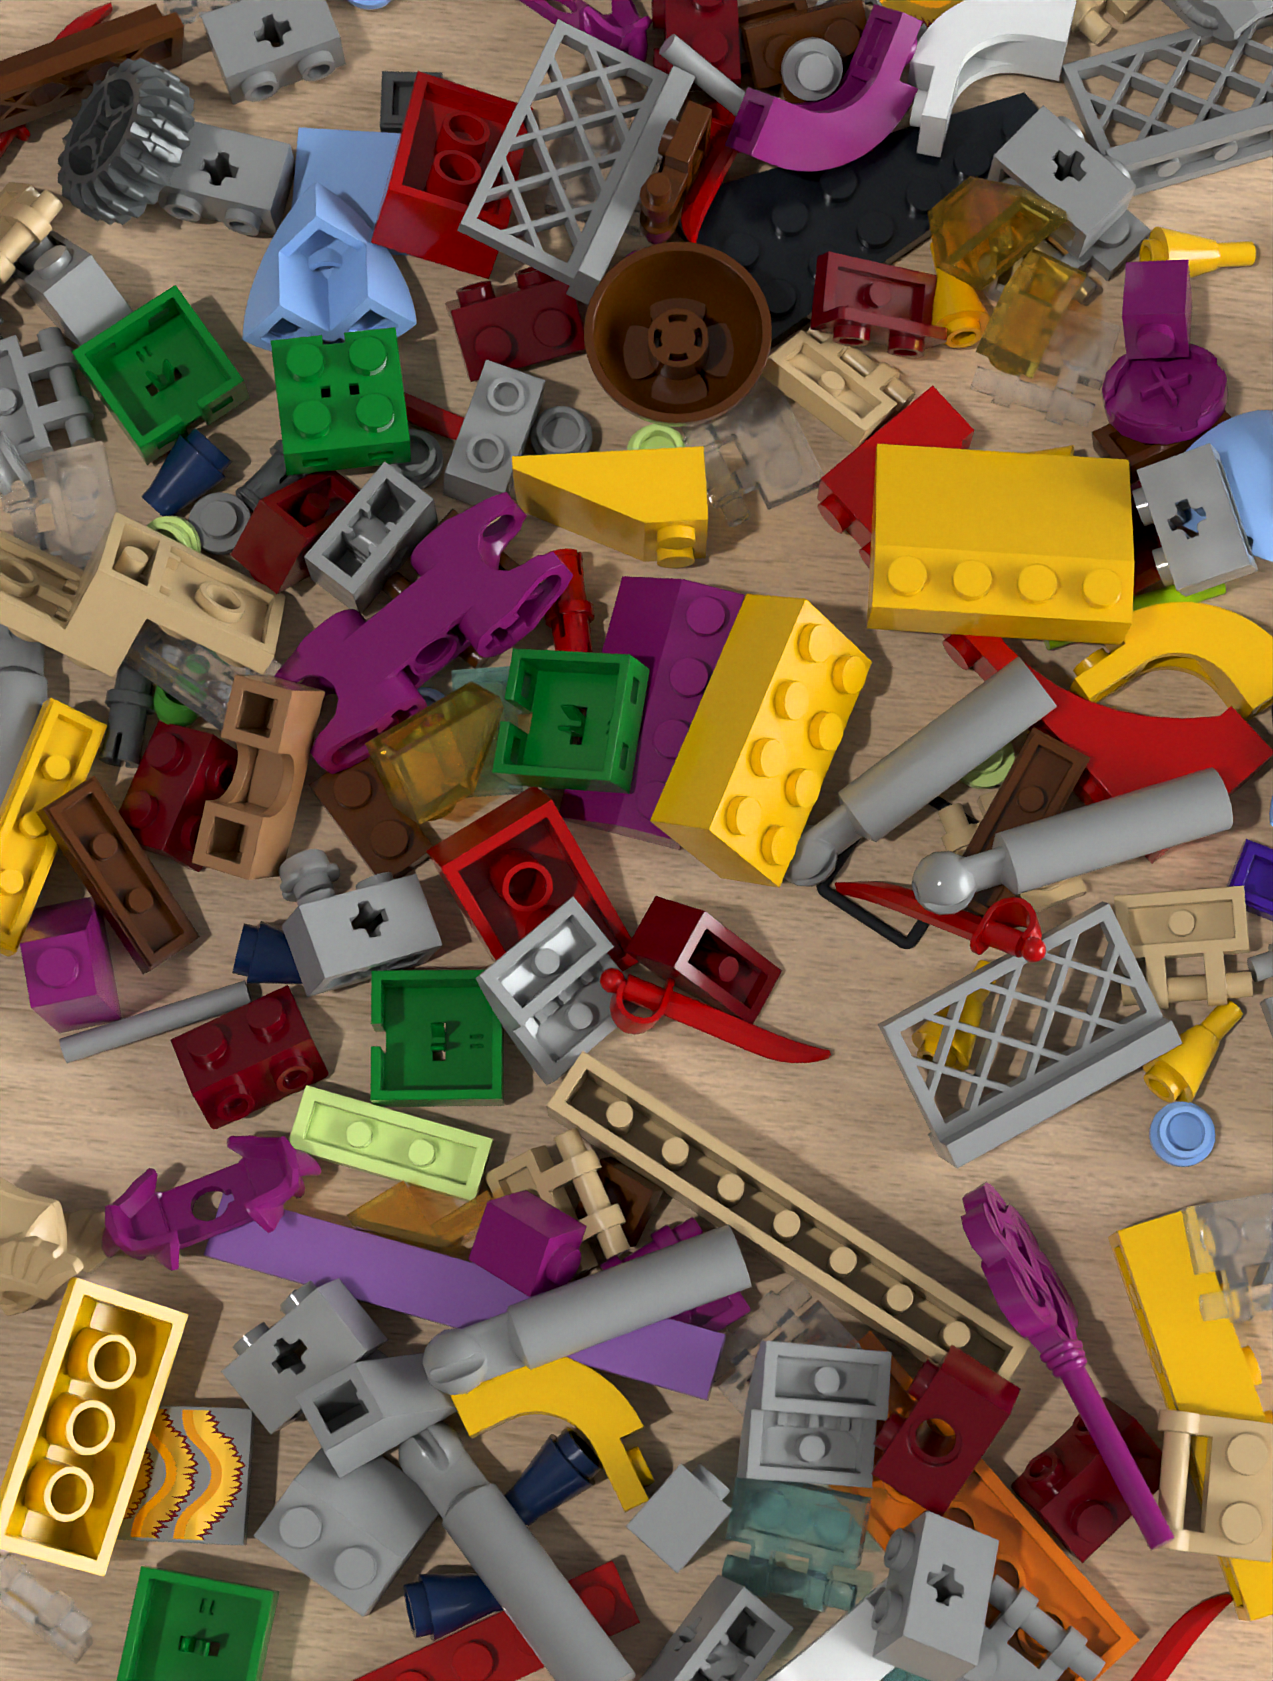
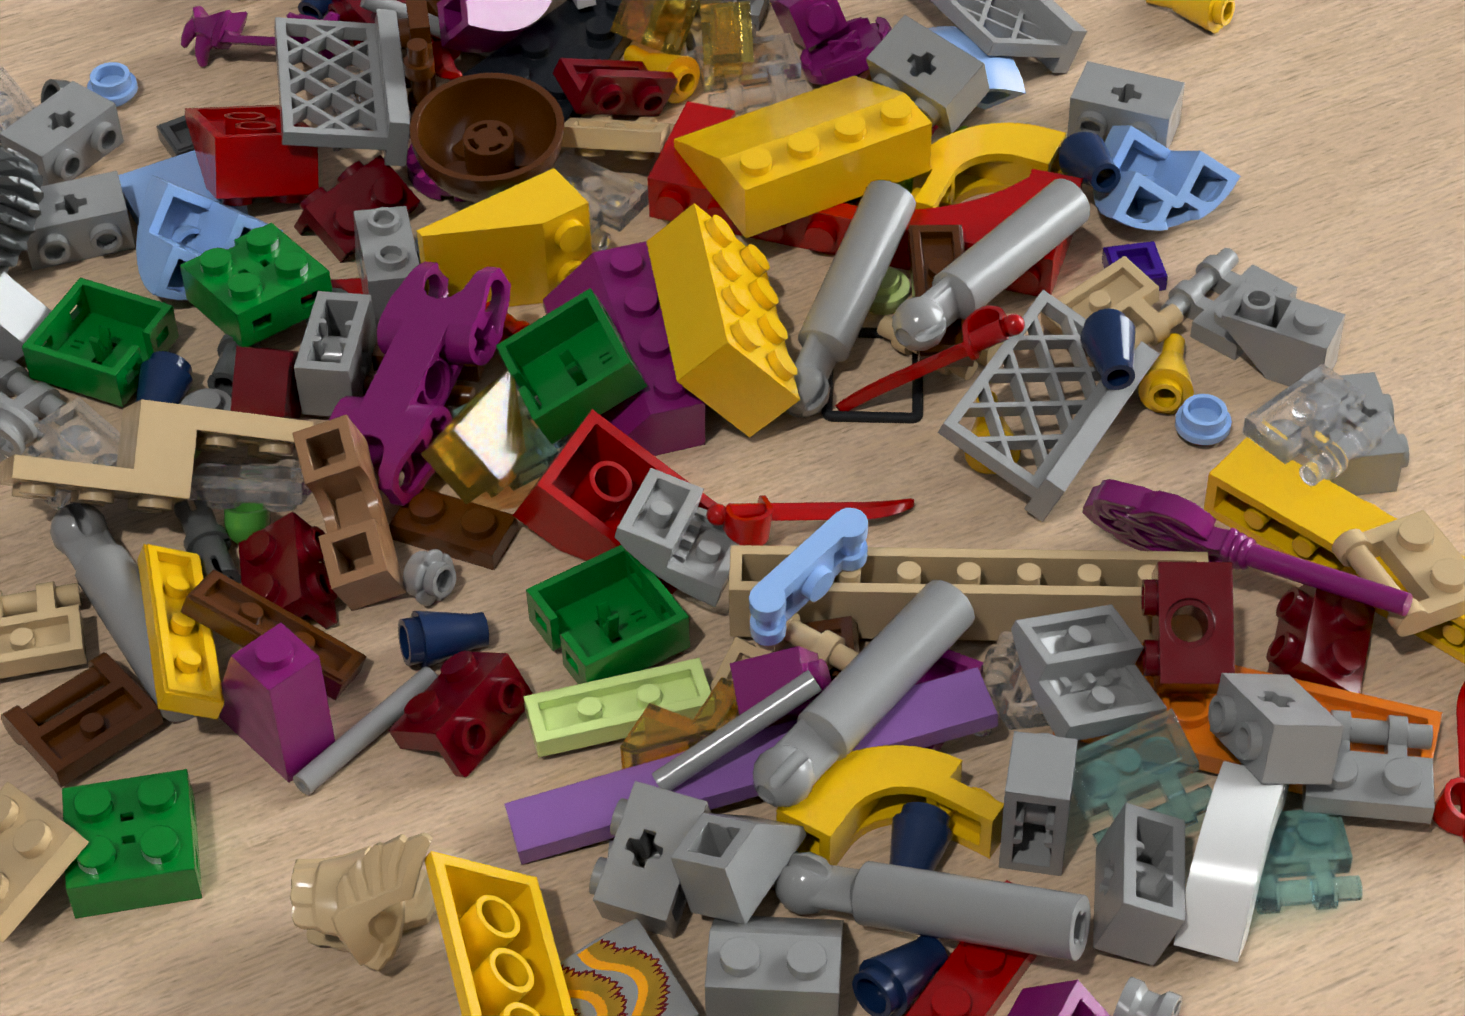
camera: 30 degrees left, 30 degrees down
(164, 1222) = (531, 773): magenta piece -> none
(336, 956) = (489, 576): light grey brick -> none
(450, 1279) = (737, 731): none -> light grey bar
(614, 1154) = (807, 574): none -> light blue plate
(703, 958) = (773, 466): dark red slope -> none
(1122, 1025) = (1110, 344): none -> dark blue cone

